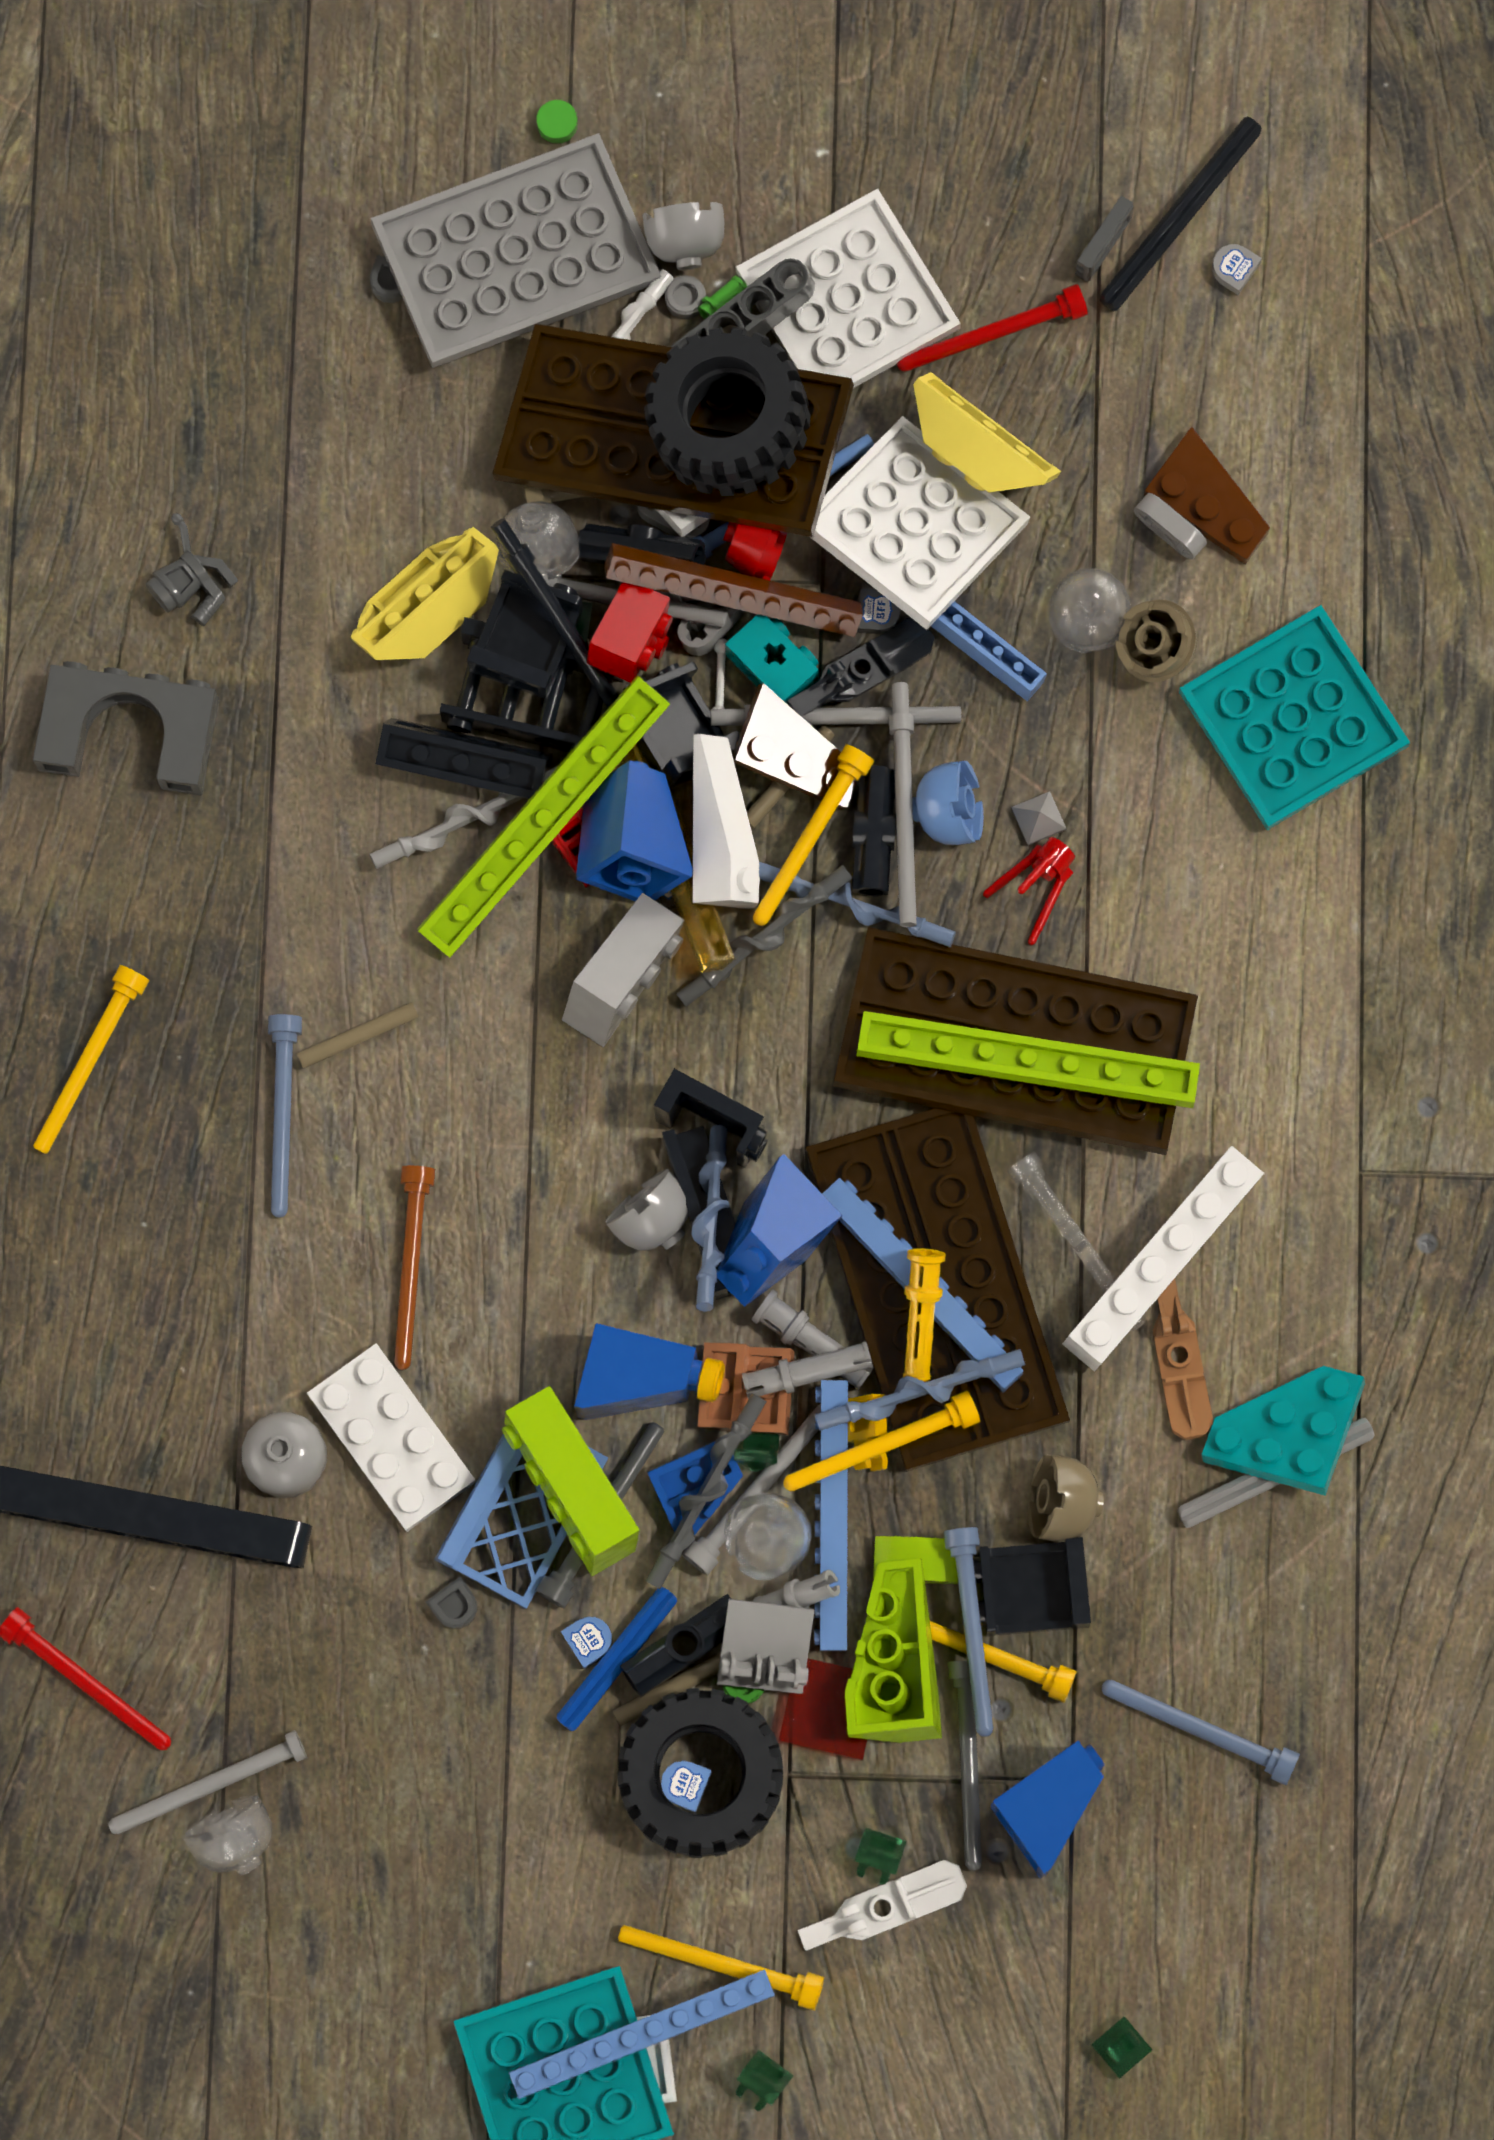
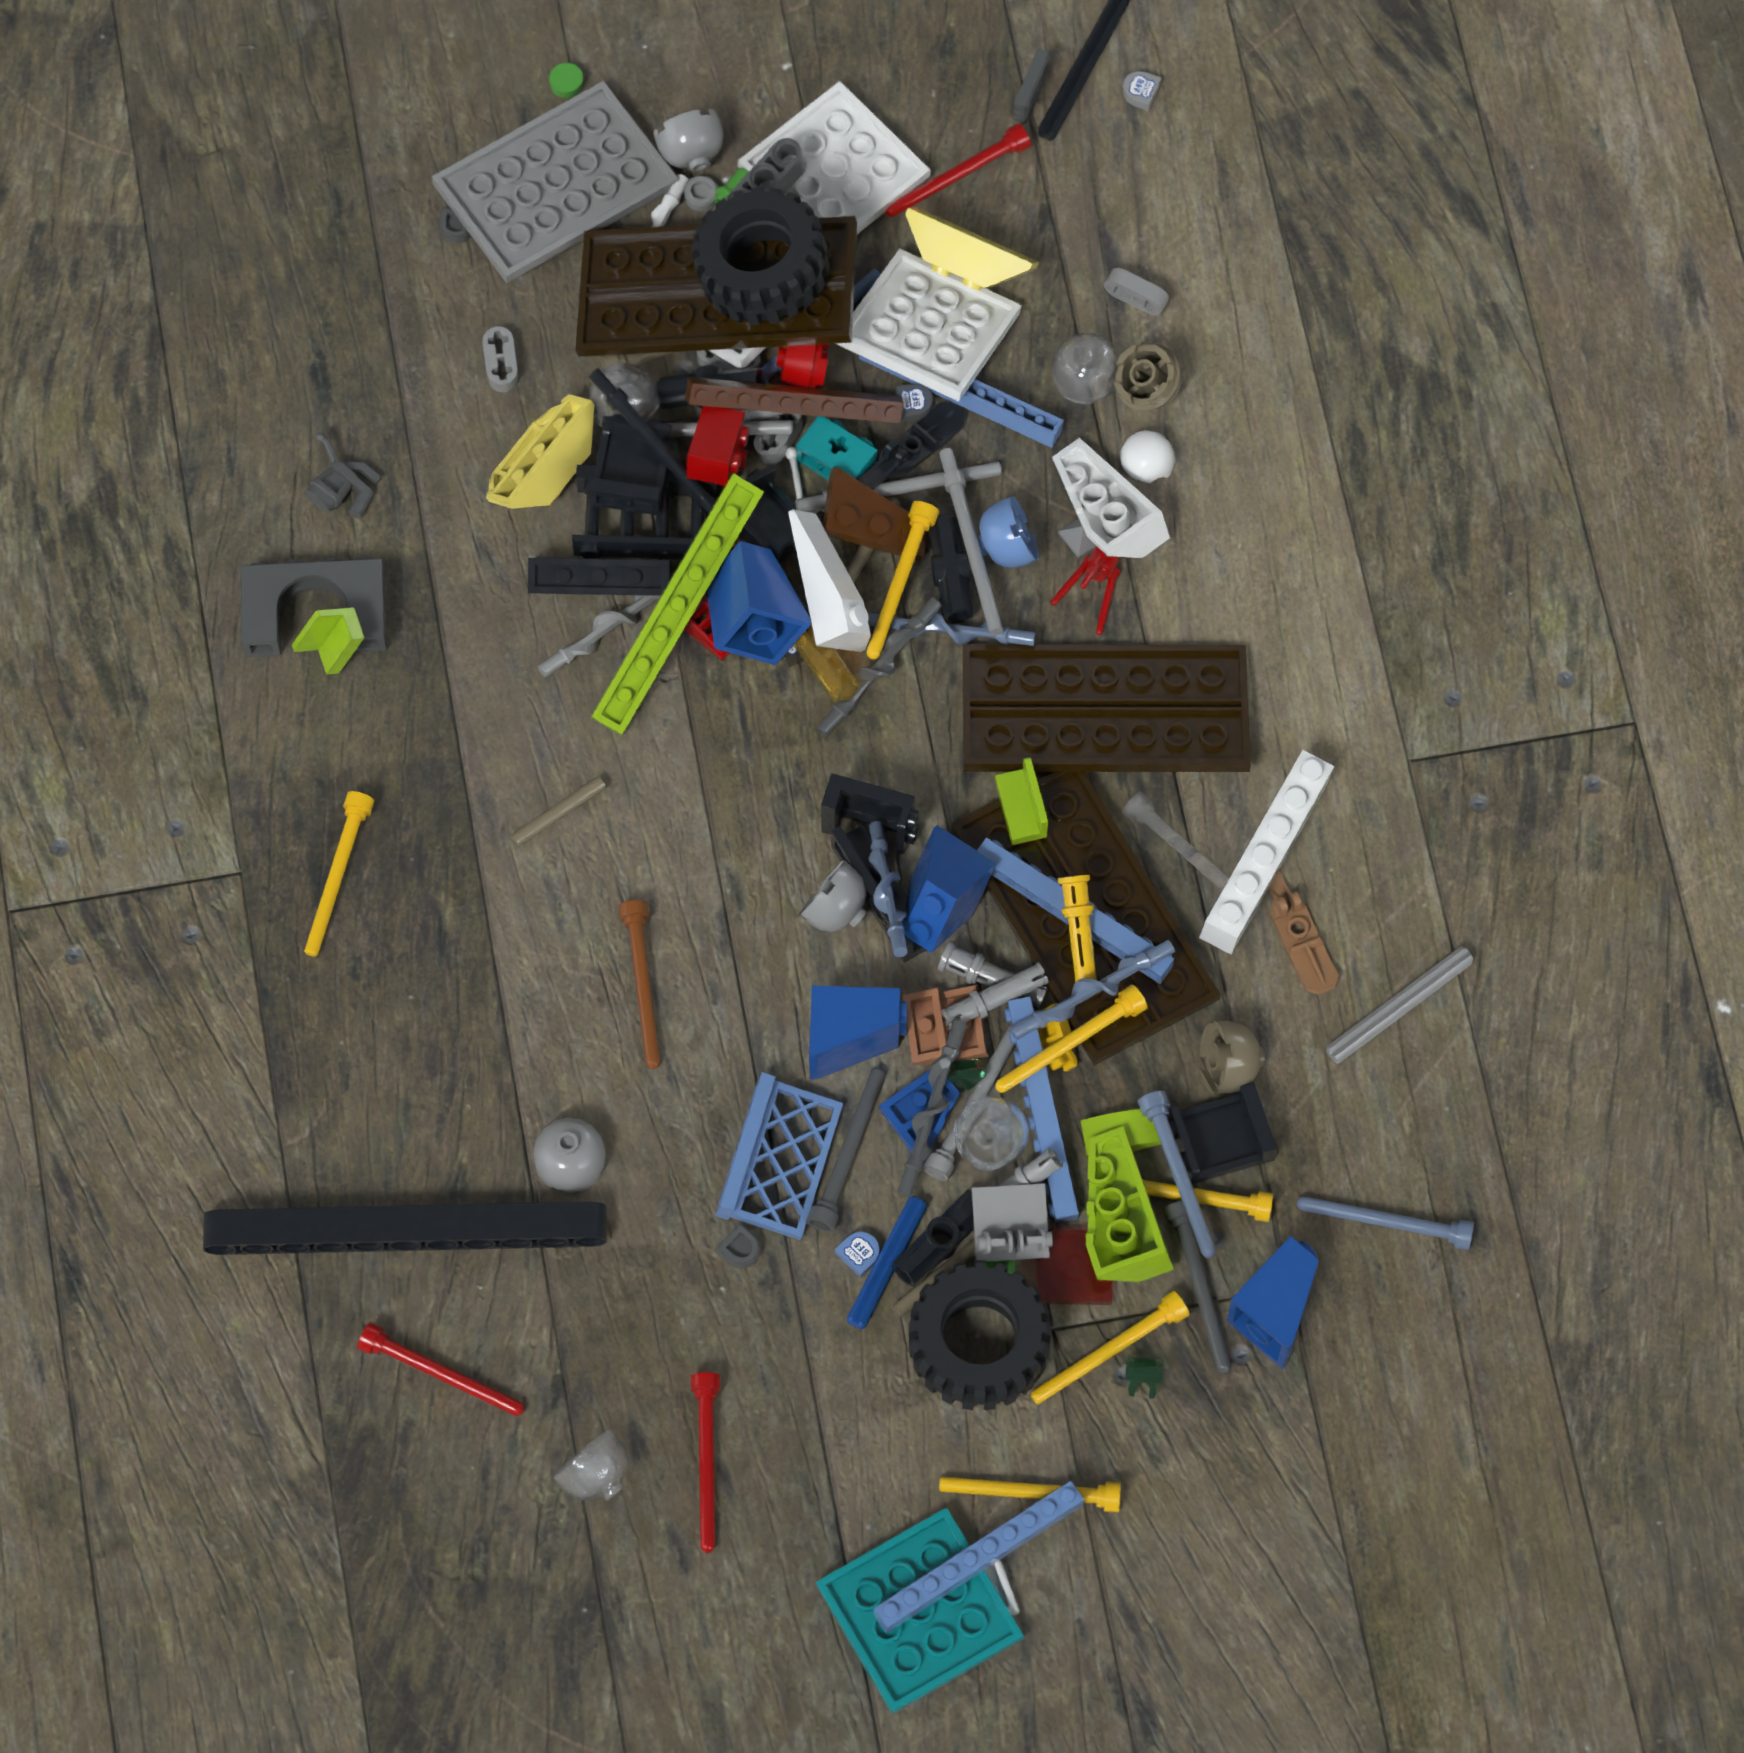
camera: 15 degrees left, 10 degrees down
(143, 775) = (332, 633): none -> lime panel
(284, 1033) = (497, 818): sand blue piece -> none
(291, 1748) = (565, 1433): light grey bar -> none
(378, 1767) = (705, 1389): none -> red piece
(391, 1437) = (657, 1124): white plate -> none
(415, 461) = (508, 358): none -> light grey beam
(571, 1481) = (820, 1120): lime wedge -> none
(622, 969) = (767, 715): light grey wedge -> none
(685, 1784) = (970, 1338): tile -> none
(710, 1380) = (916, 1019): yellow tile -> none
(764, 2079) = (1088, 1574): clear green tile -> none
(890, 1143) = (1022, 804): none -> lime panel
(908, 1897) = (1175, 1406): white piece -> none
(925, 1785) = (1170, 1310): none -> yellow piece
(1028, 1059) = (1120, 715): lime plate -> none
(1073, 791) = (1108, 505): none -> white wedge
(1121, 2047) = (1382, 1490): clear green tile -> none
(1137, 736) = (1147, 456): none -> white hair
(1209, 498) = (1165, 265): reddish brown wing -> none
(1290, 1431) = (1403, 968): teal plate -> none
(1294, 717) = (1271, 418): teal plate -> none

